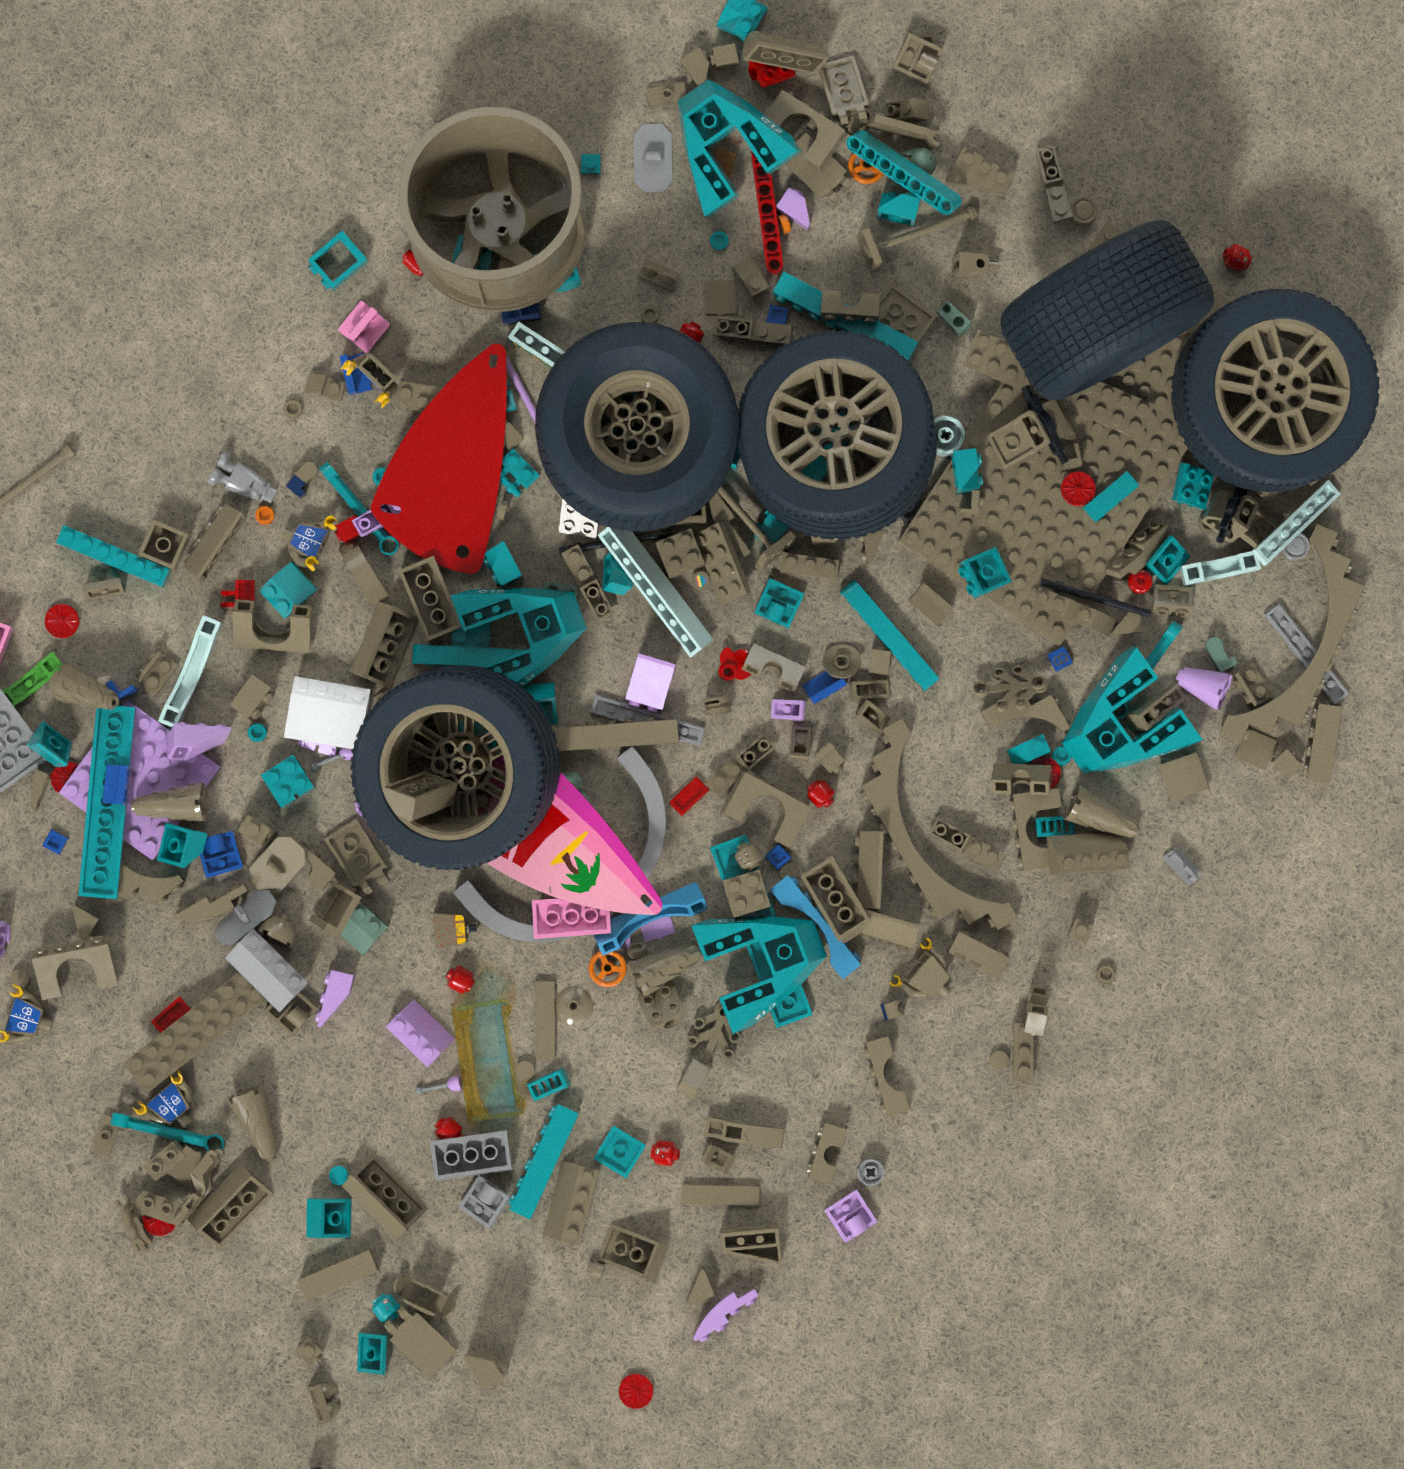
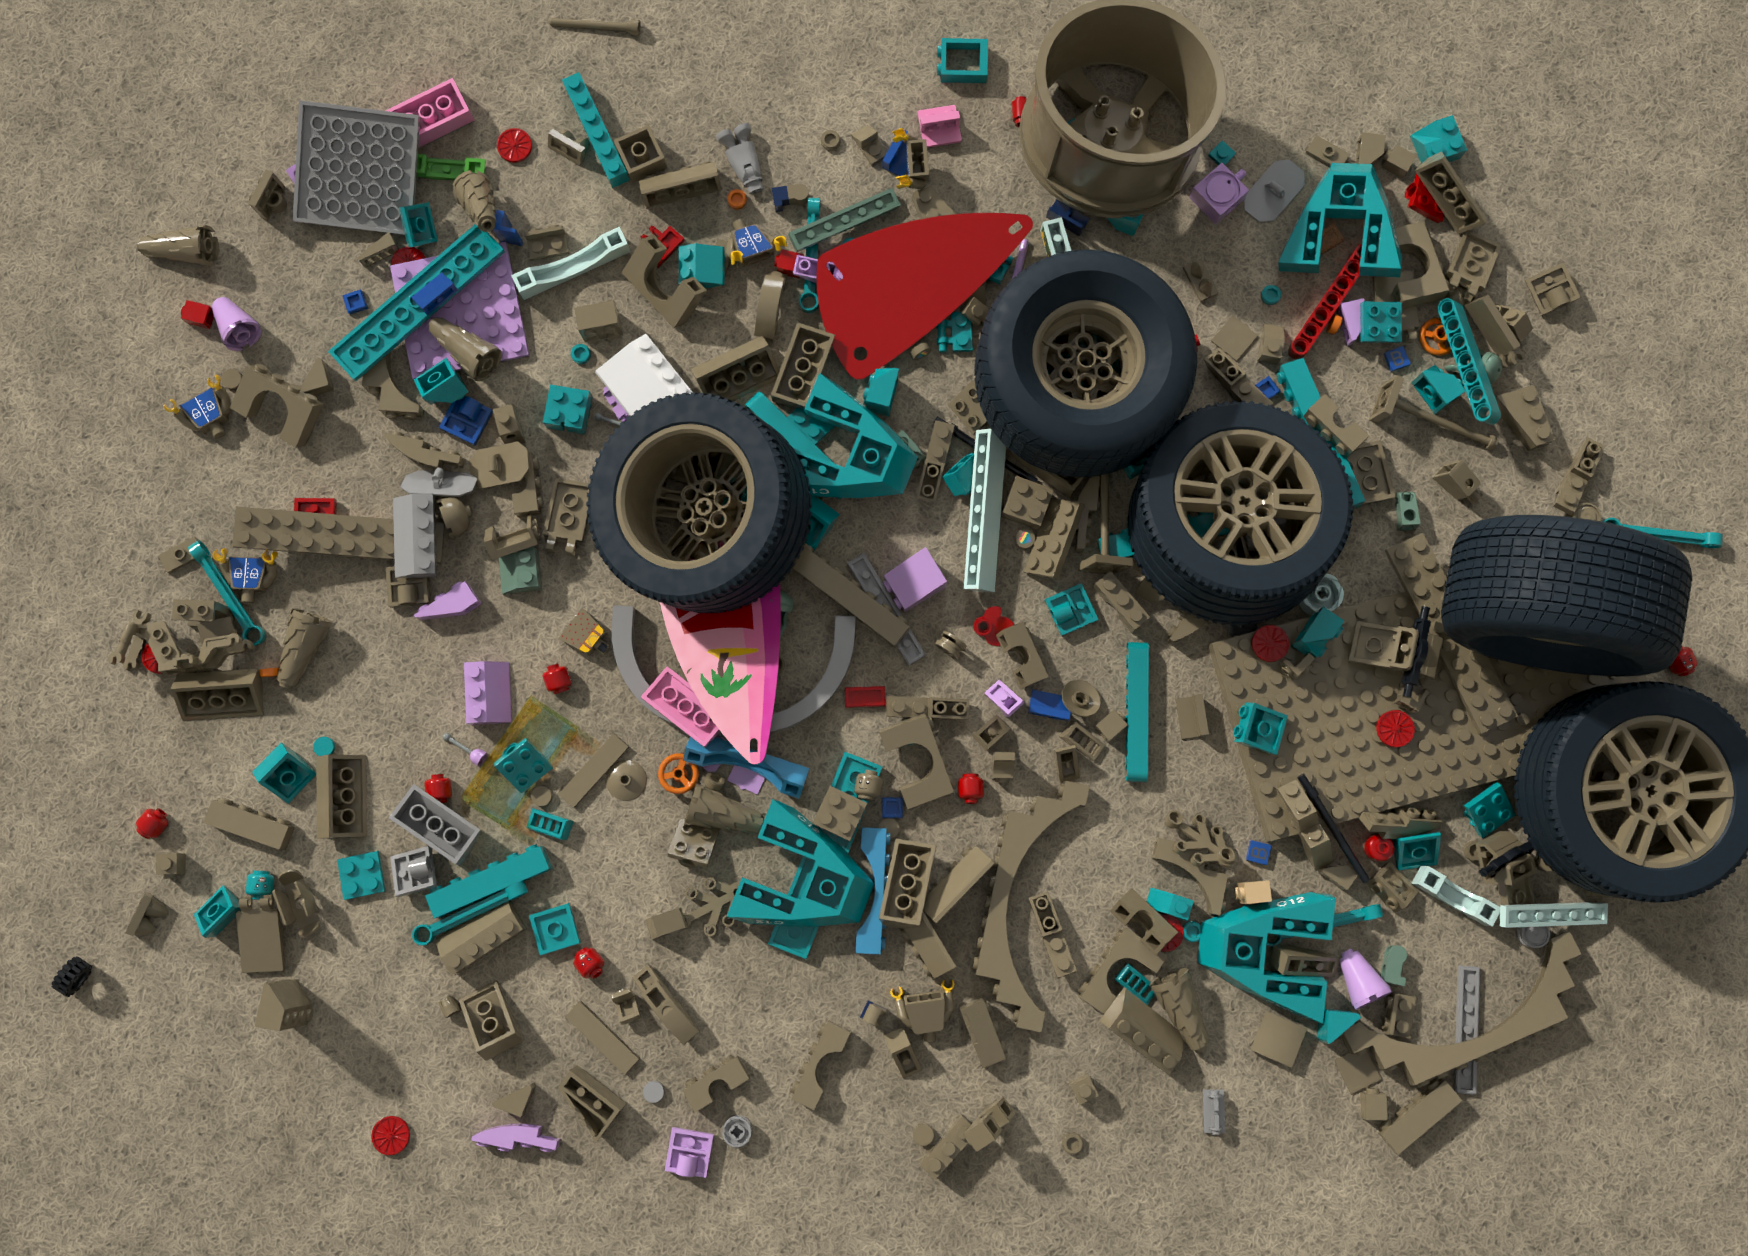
camera: 40 degrees right, 5 degrees down
(191, 740) = (524, 313): lavender slope -> none
(252, 1157) = (268, 672): none -> orange tile
(268, 1336) = (152, 823): none -> red head
(360, 462) = (844, 220): none -> sand green plate
(420, 795) = (649, 499): dark tan slope -> none
(449, 1238) = (361, 875): none -> teal plate
(493, 1059) = (522, 764): none -> teal plate
(519, 445) = (975, 311): none -> dark tan plate
(551, 1191) = (508, 894): none -> teal piece
(615, 197) = (1219, 192): none -> lavender piece
(789, 1198) = (653, 1091): none -> light grey tile
(816, 195) = (1381, 322): none -> teal plate
(851, 209) = (1396, 358): none -> blue tile
(936, 1017) = (902, 1052): none -> dark tan slope
(939, 505) = (1270, 643): none -> red wheel
(1078, 691) = (1253, 892): none -> tan brick
(1111, 496) = (1417, 758): teal tile -> none
(1179, 153) = (1706, 539): none -> teal piece
(1211, 731) = (1334, 1024): none -> teal slope

